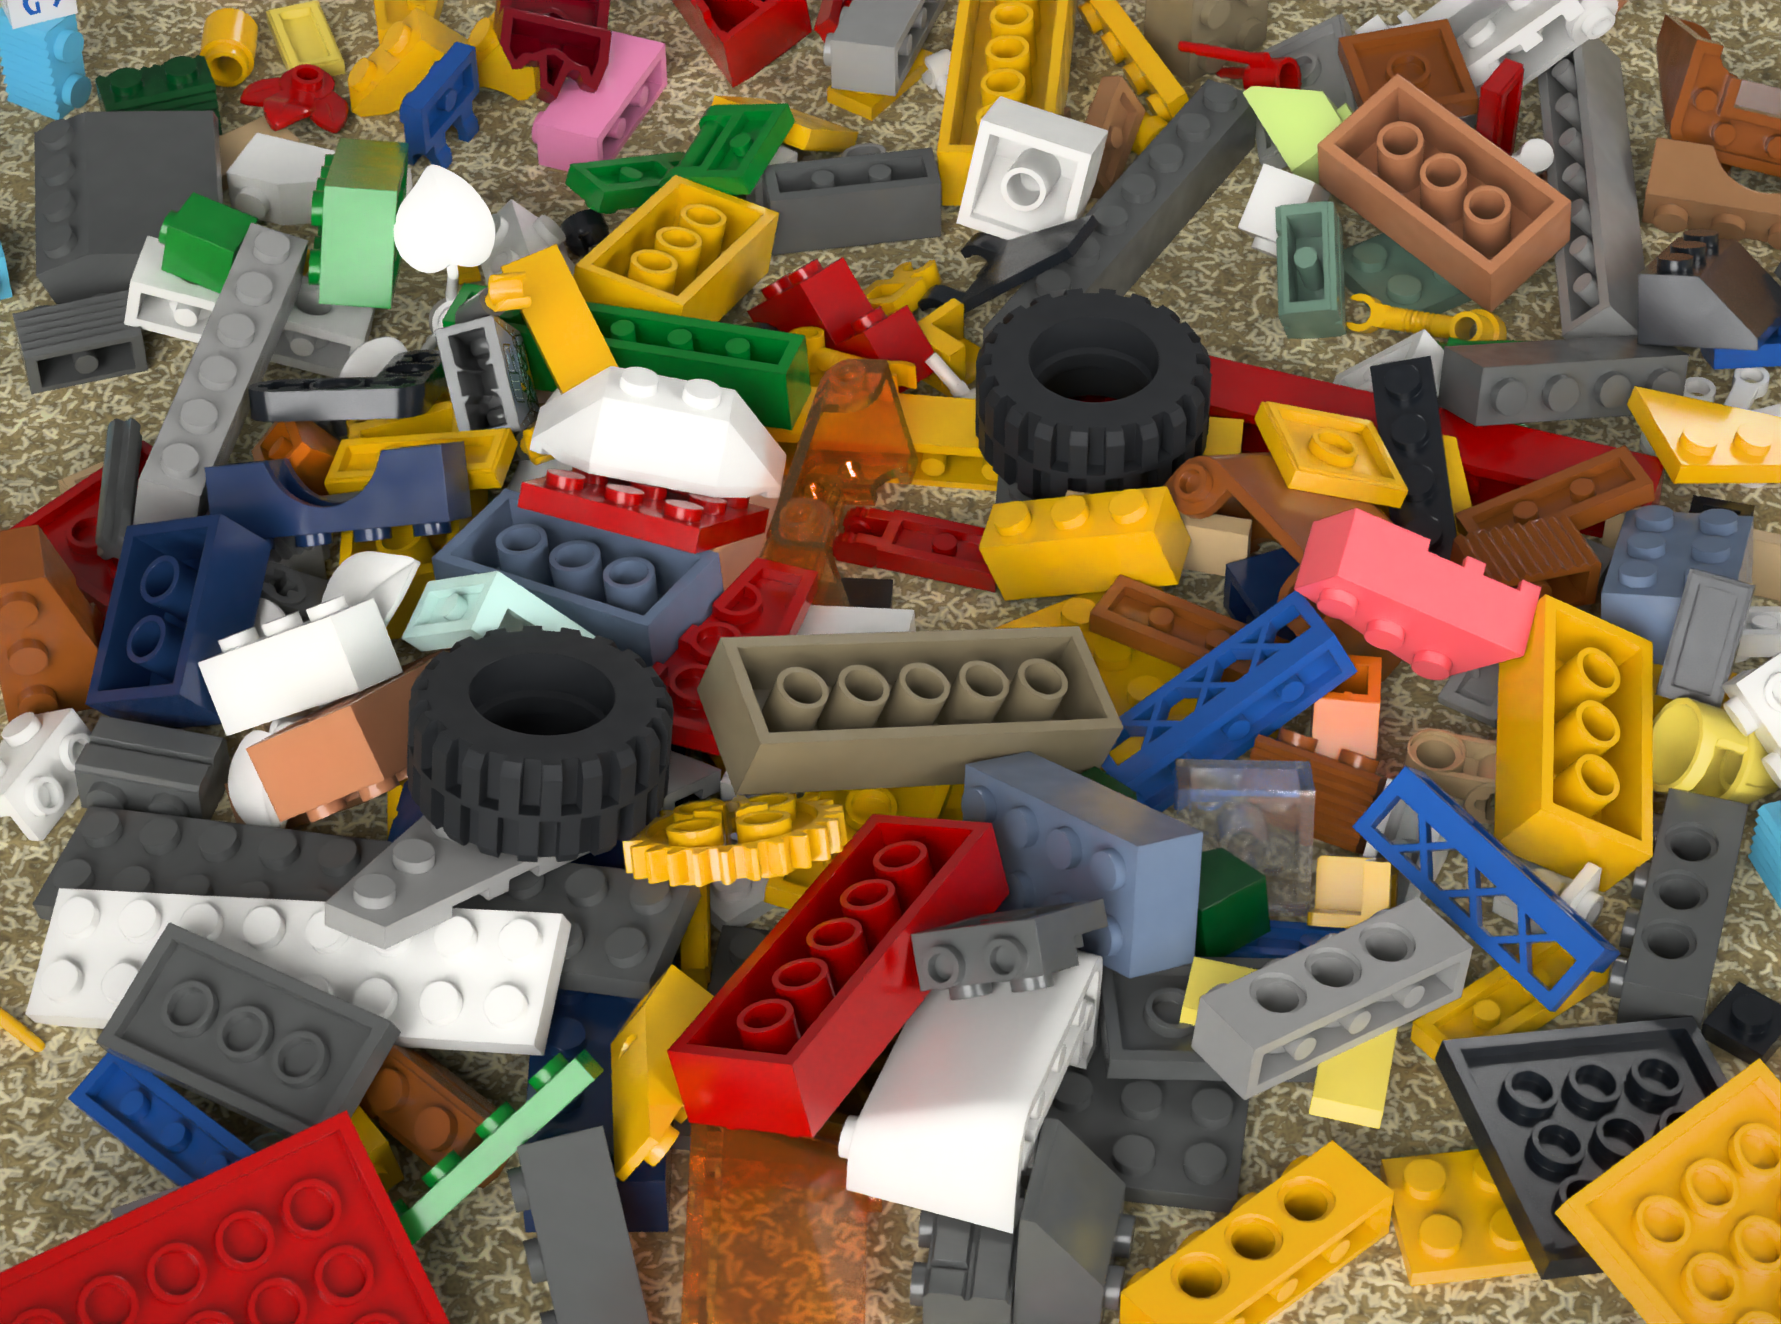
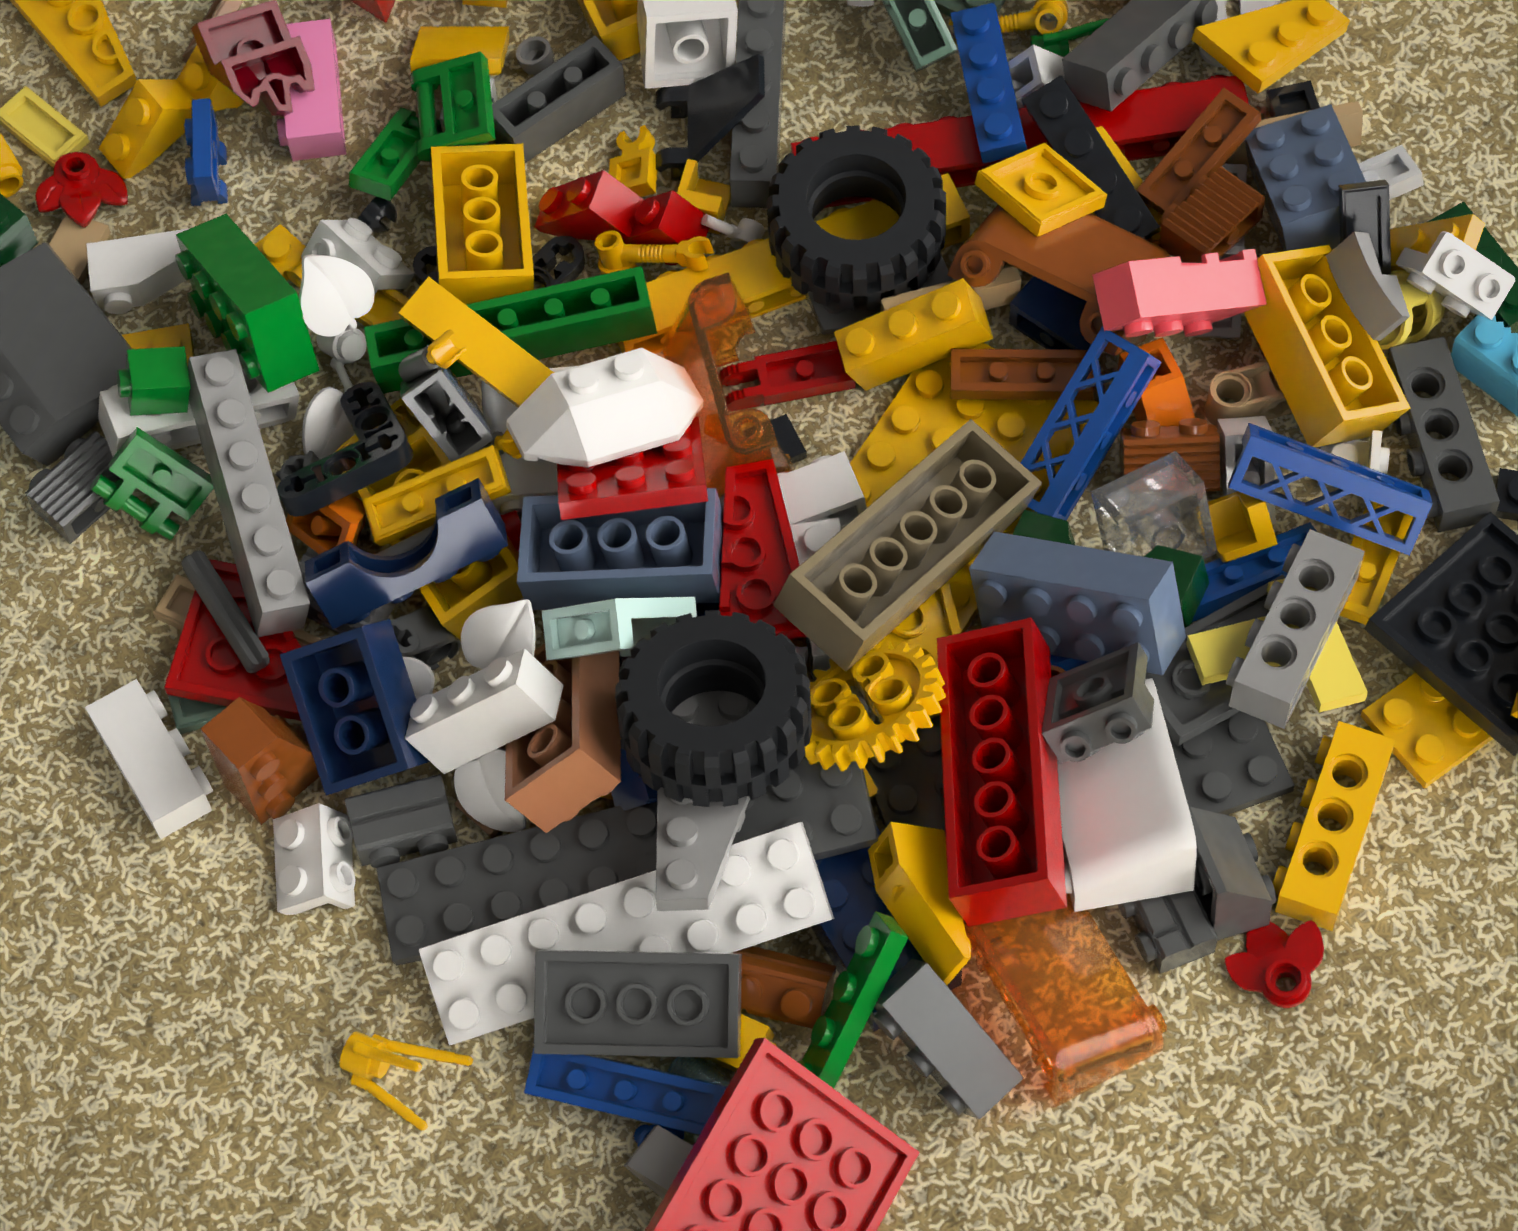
camera: 25 degrees left, 20 degrees up
(153, 339) = (159, 474): none -> green plate
(1351, 344) = (988, 82): none -> blue plate
(1666, 699) = (1369, 293): none -> light grey slope

